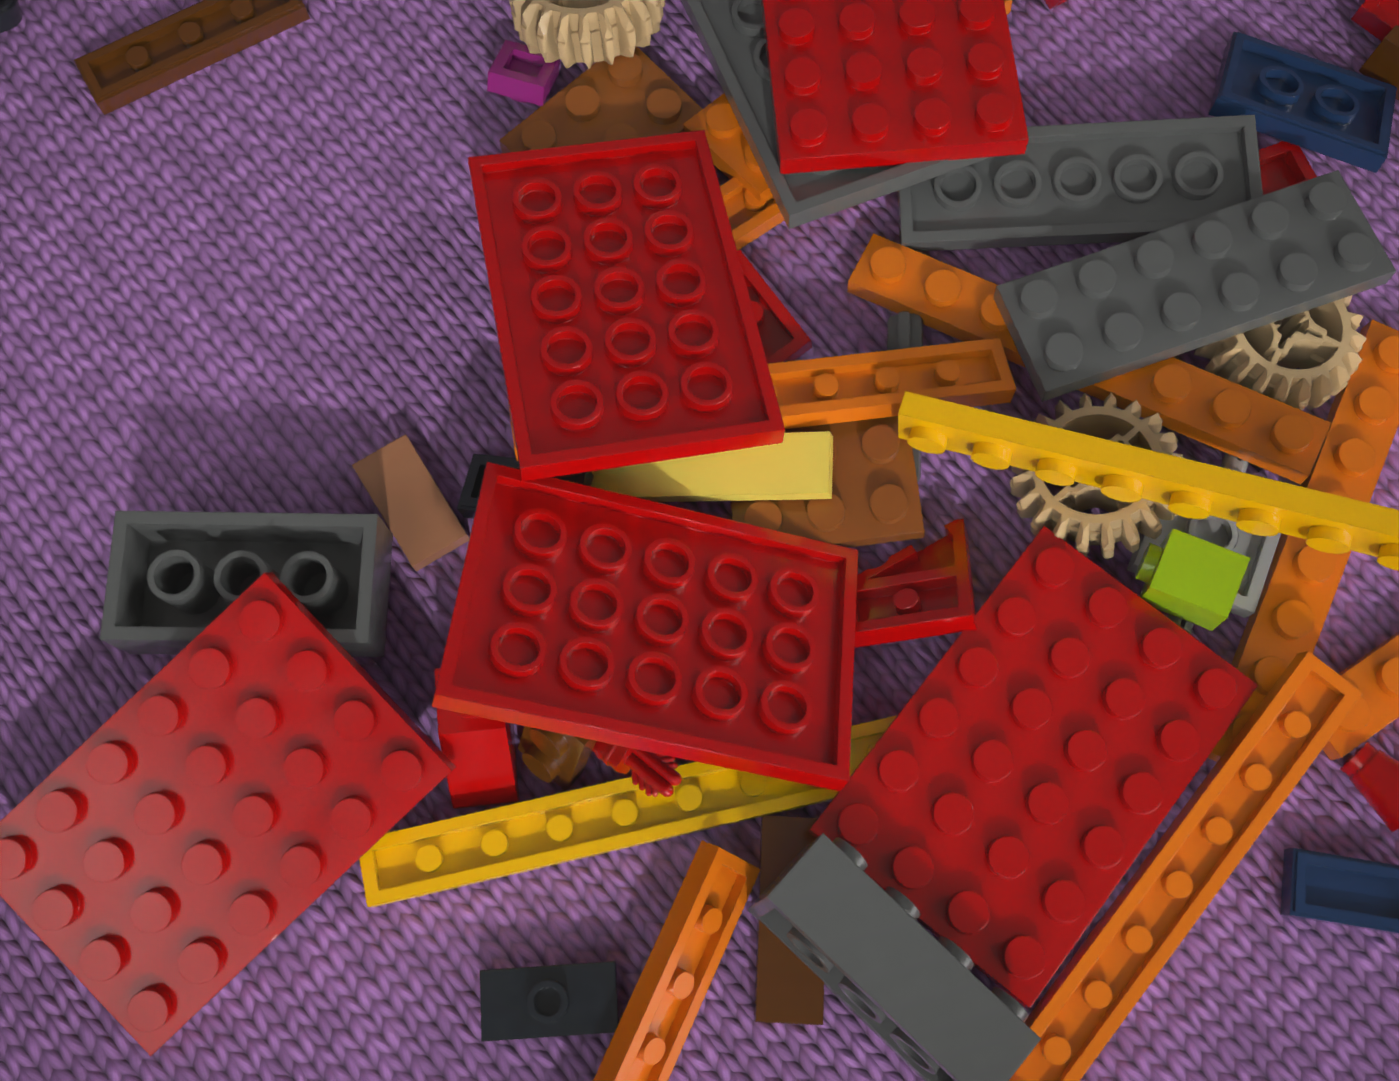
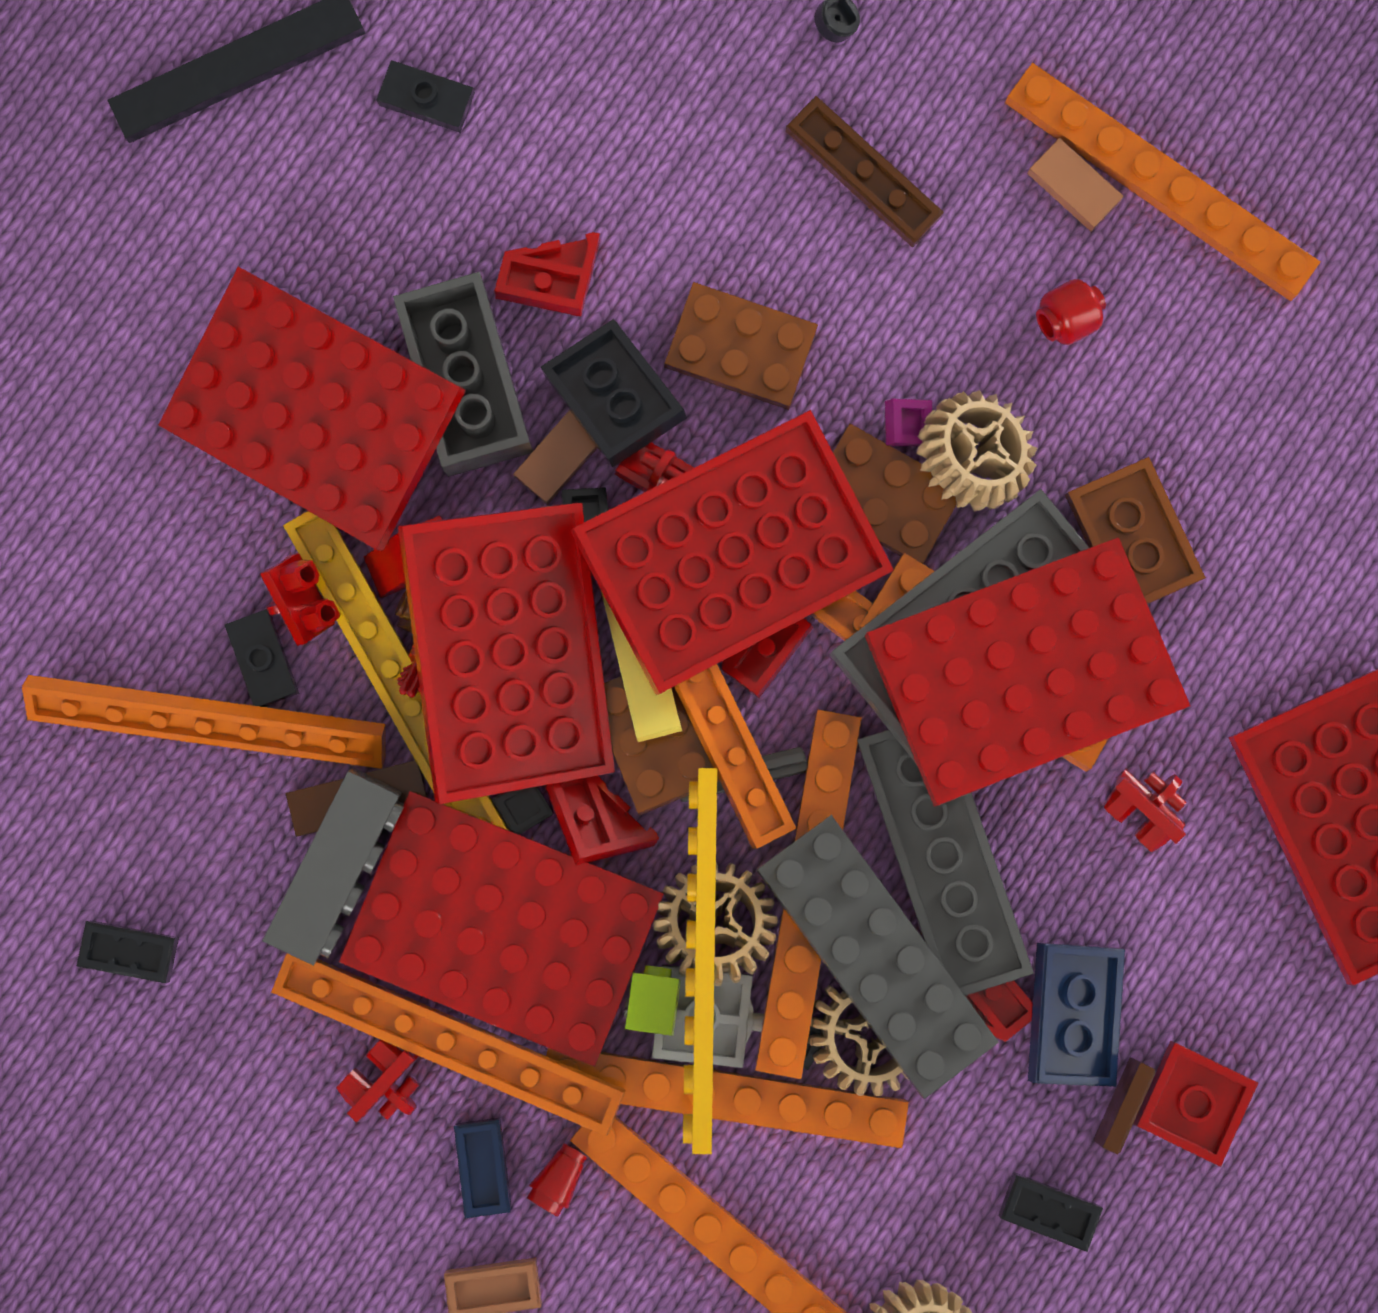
camera: 75 degrees right, 10 degrees up
(163, 440) = (550, 275): none -> red wing
(352, 240) = (740, 345): none -> dark orange plate
(352, 398) = (613, 393): none -> black plate
(469, 380) = (651, 467): none -> red hips
(484, 915) = (298, 599): none -> red hips
(876, 688) = (522, 808): none -> black tile
(1223, 997) = (363, 1094): none -> red hips

